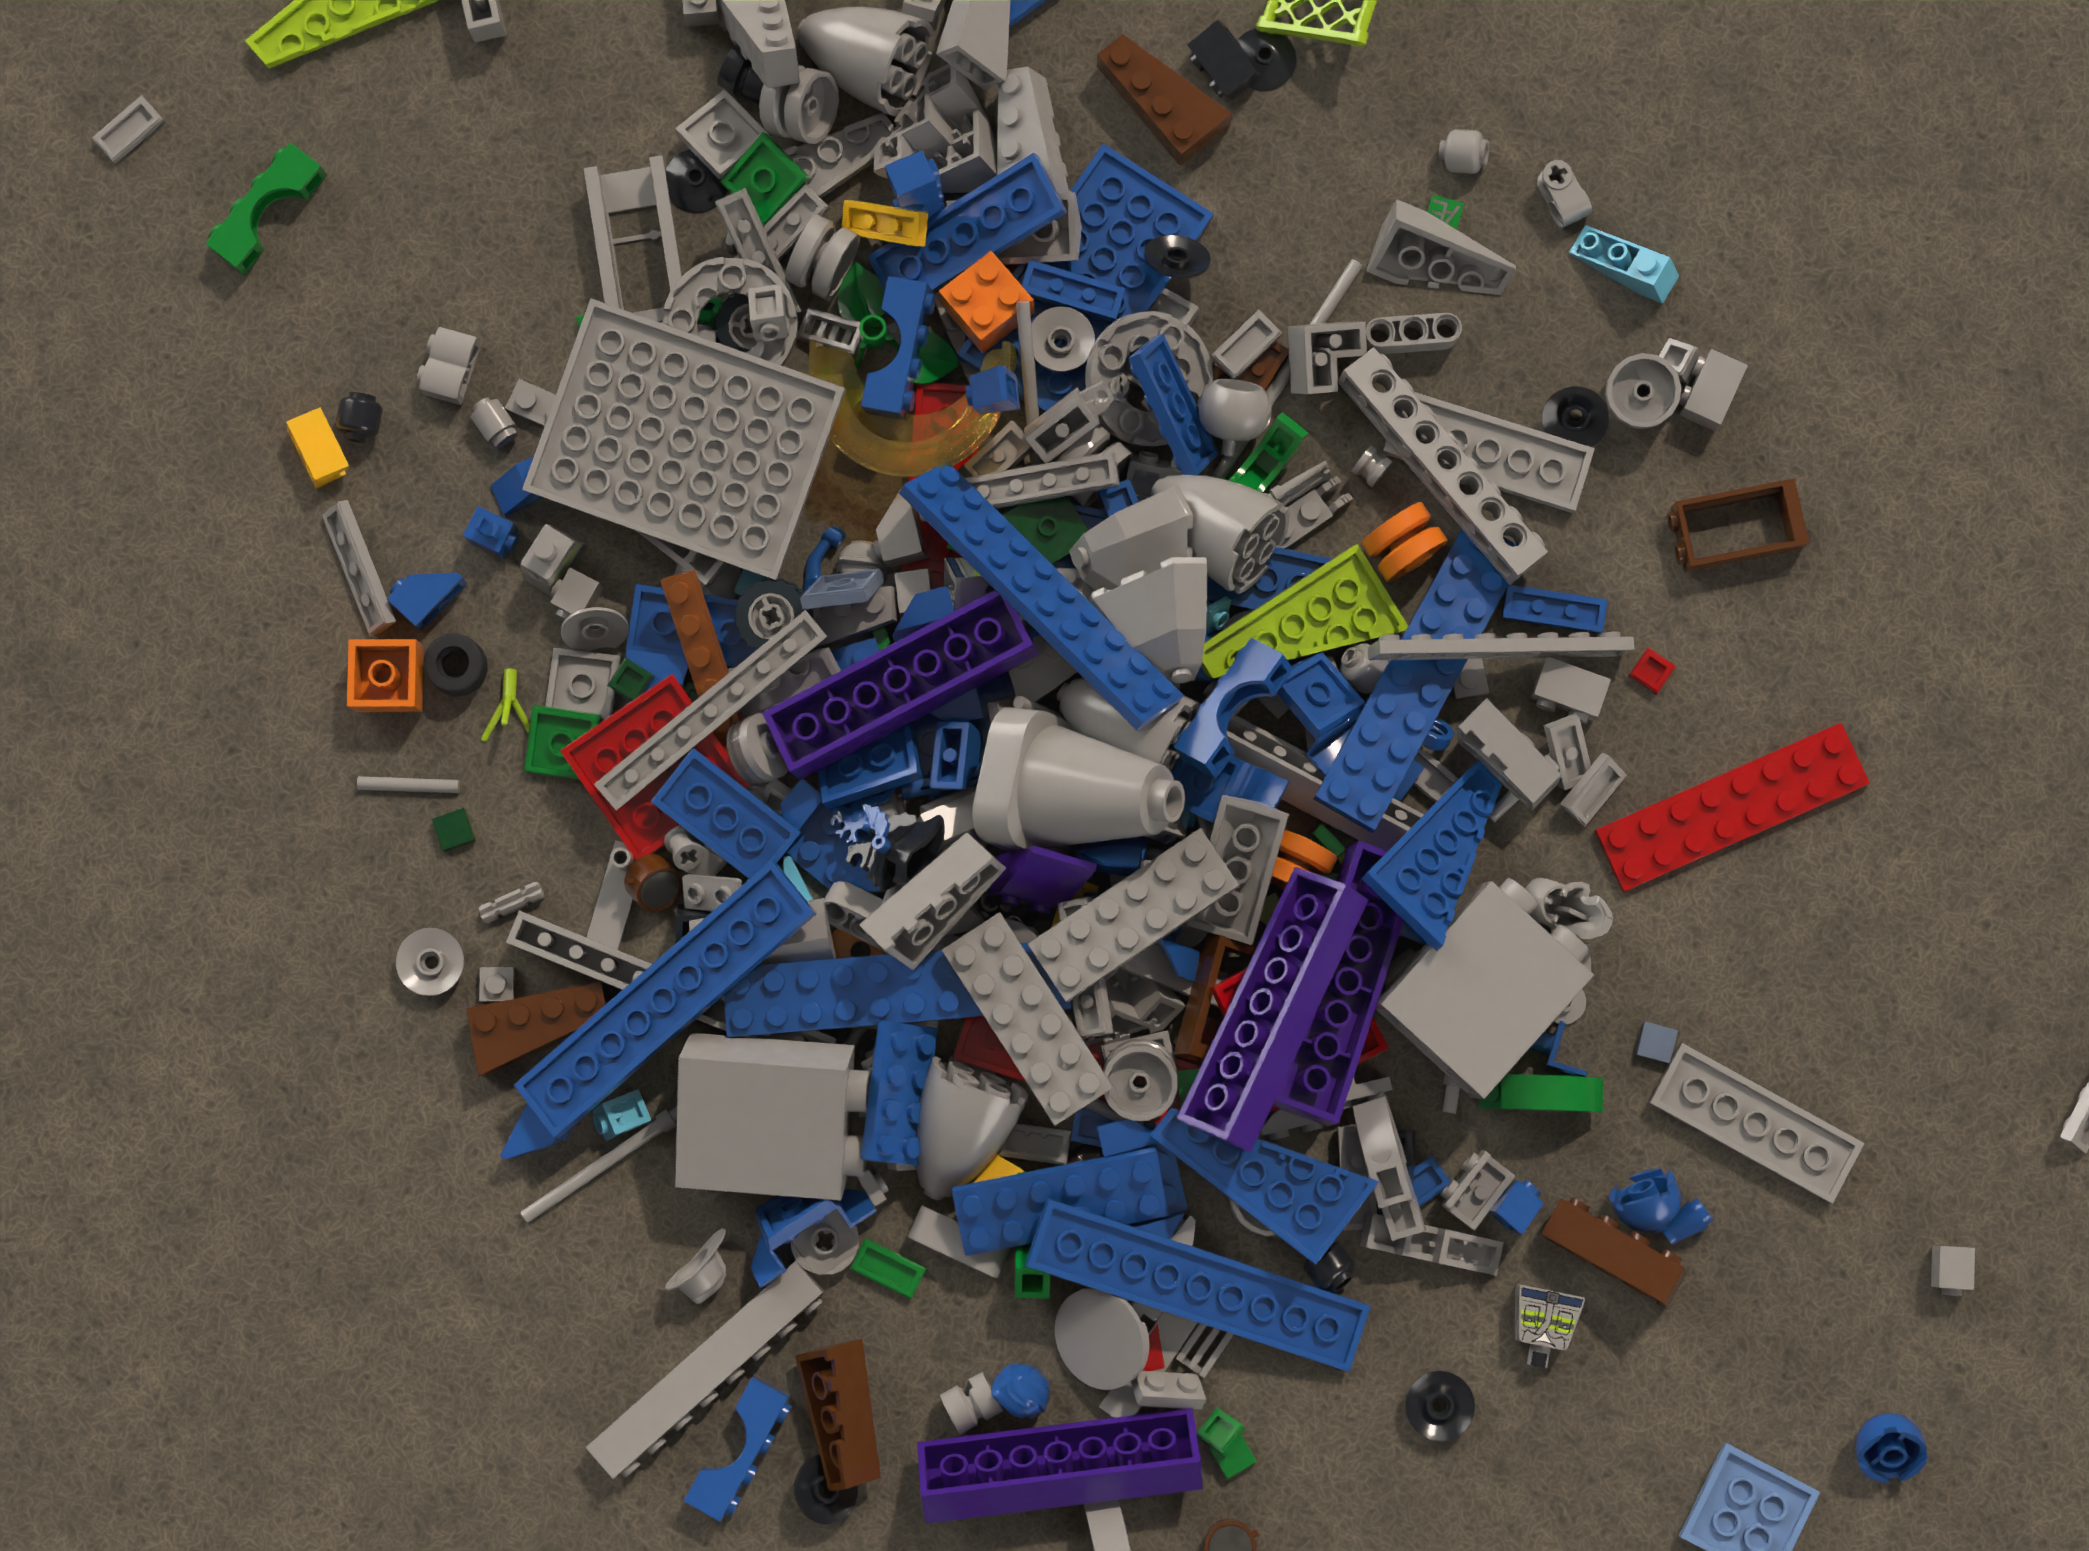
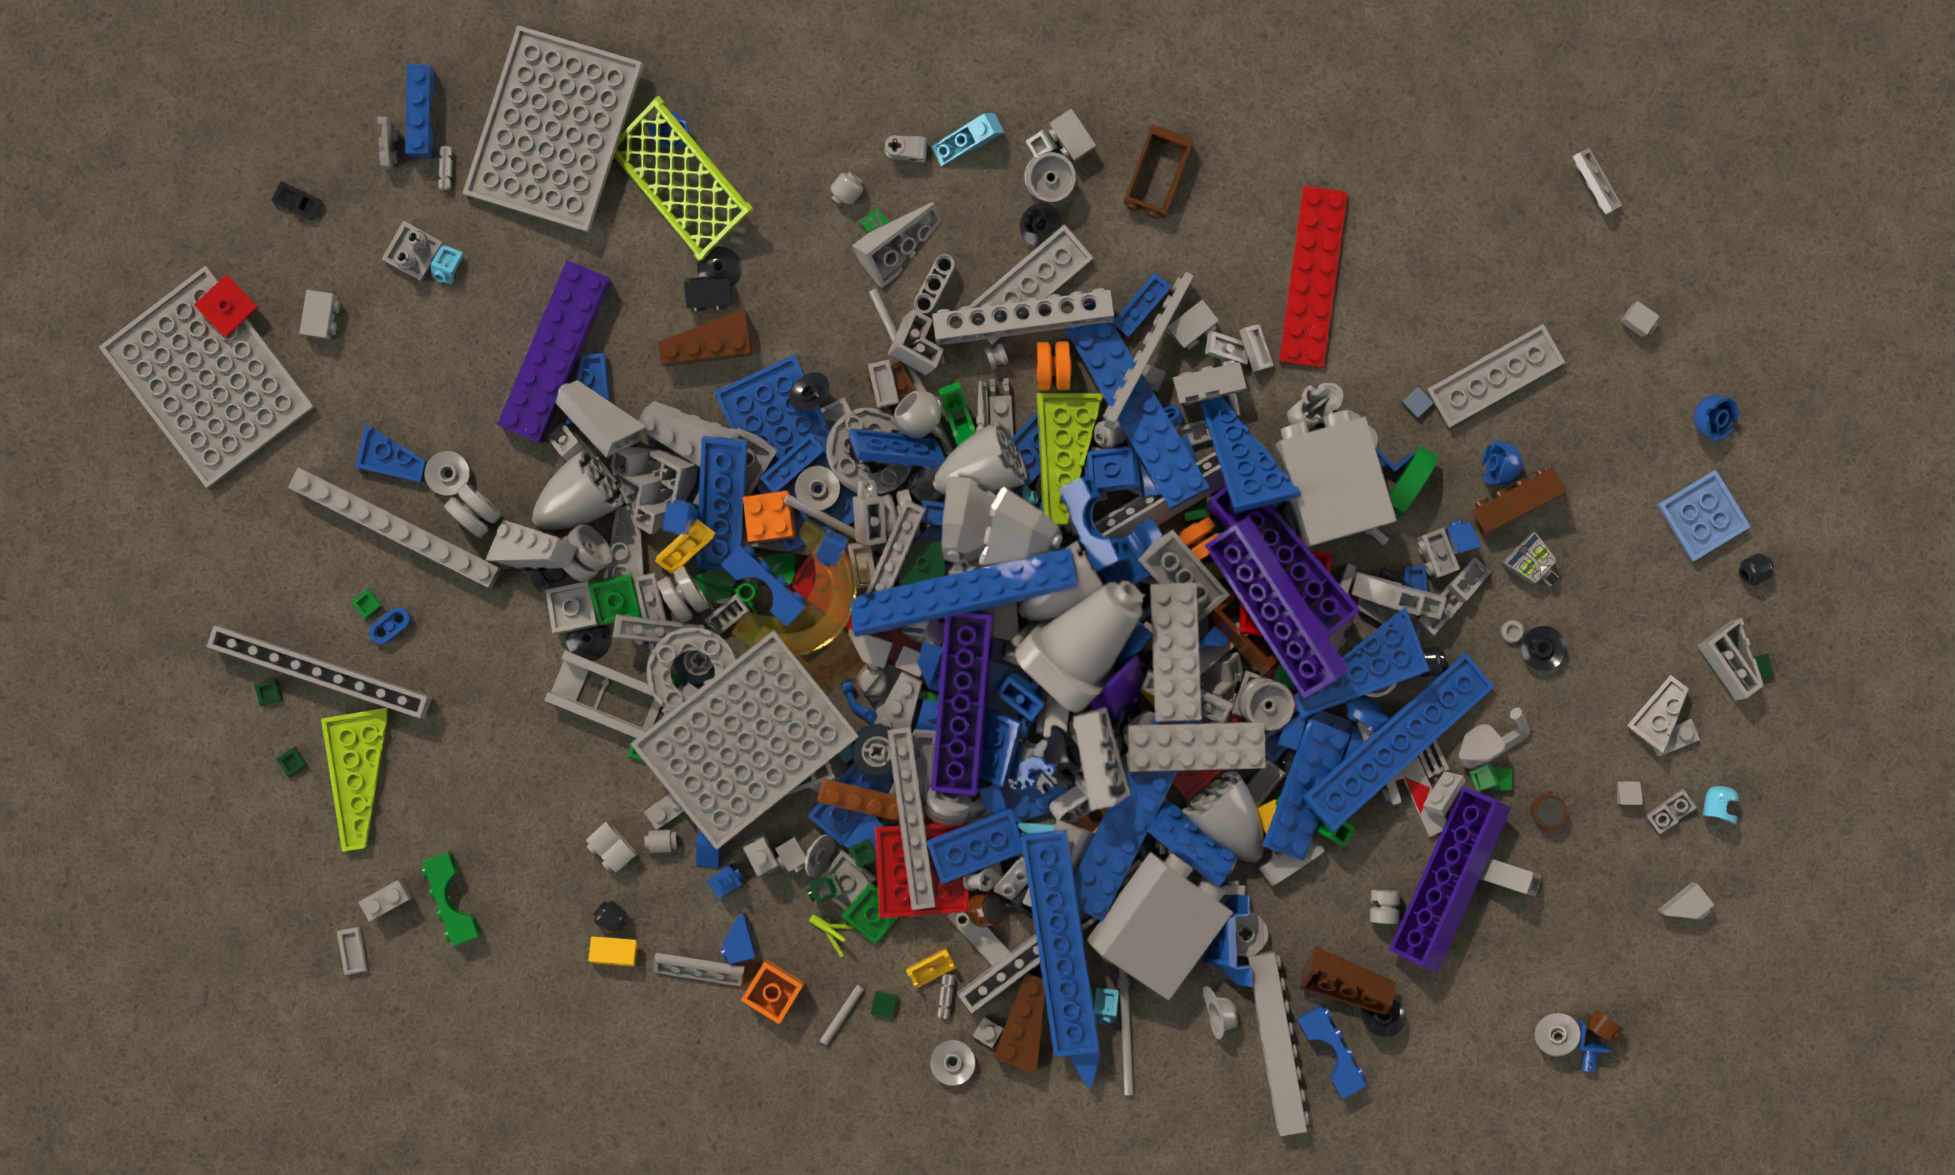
camera: 65 degrees left, 5 degrees up
(216, 129) = (386, 899): none -> light grey brick
(449, 644) = (789, 933): black tyre -> none
(535, 861) = (931, 968): none -> yellow hinge
(555, 660) = (824, 888): none -> dark green window
(767, 312) = (701, 647): light grey bracket -> none
(842, 588) = (886, 701): sand blue tile -> none
(888, 1268) = (1281, 907): green tile -> none
(1021, 1390) = (1395, 874): blue hair -> none
(1101, 1338) = (1395, 813): light grey tile -> none
(1211, 1220) = (1367, 712): none -> blue tile
(1265, 1406) = (1485, 744): none -> light grey piece
(1436, 1351) = (1512, 631): none -> light grey tile
(1651, 670) = (1209, 272): red tile -> none
(1689, 1221) = (1526, 445): blue cone -> none

